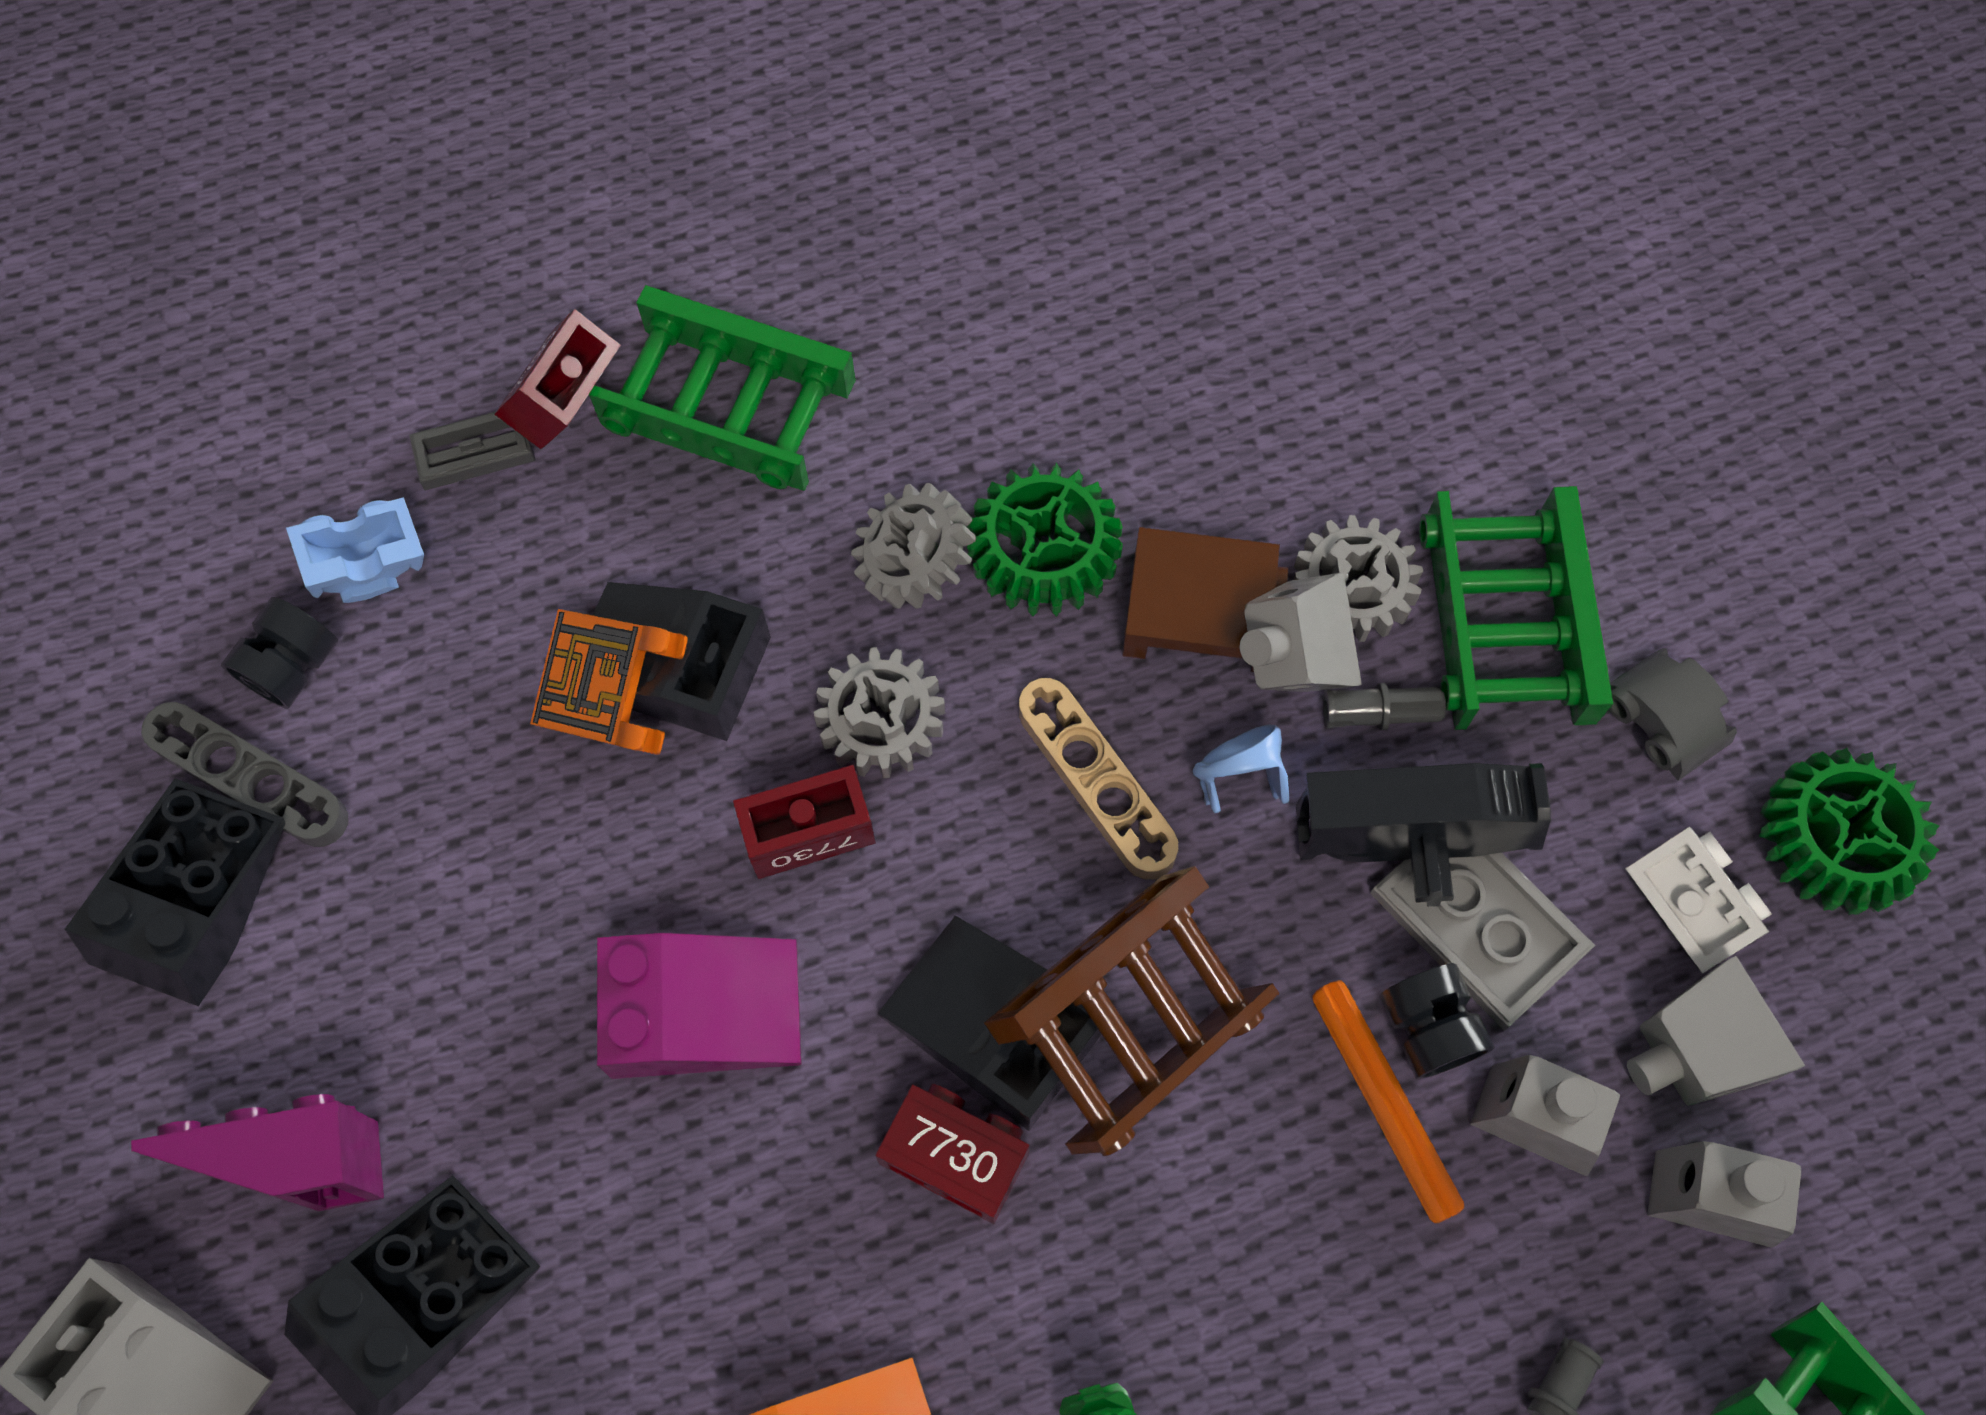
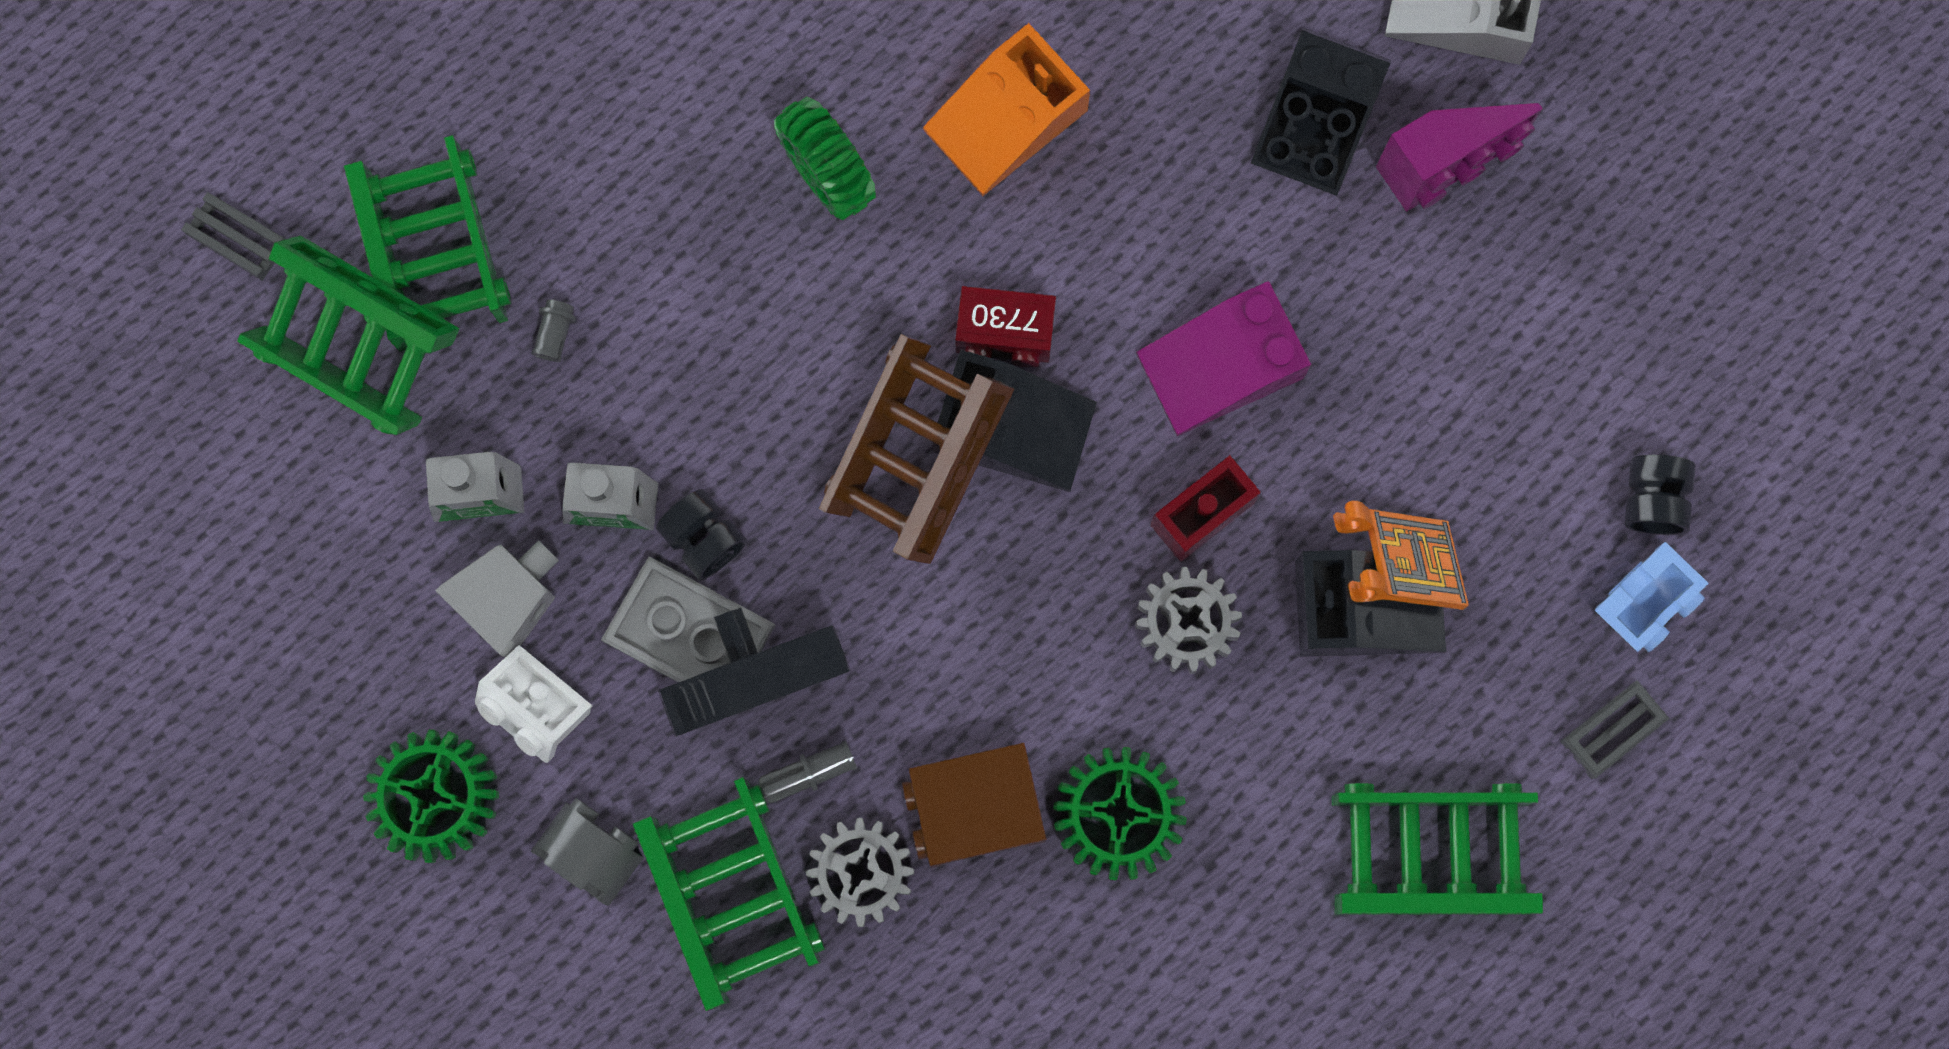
camera: 160 degrees right, 10 degrees up
(178, 892) = (1626, 301): black slope -> none
(245, 773) = (1635, 398): dark grey beam -> none
(557, 379) = (1569, 798): dark red brick -> none
(913, 546) = (1220, 761): light grey gear -> none
(1103, 773) = (1010, 630): tan beam -> none
(1246, 753) = (899, 700): light blue piece -> none
(1302, 636) = (888, 785): light grey torso -> none
(1388, 1102) = (721, 475): orange axle -> none

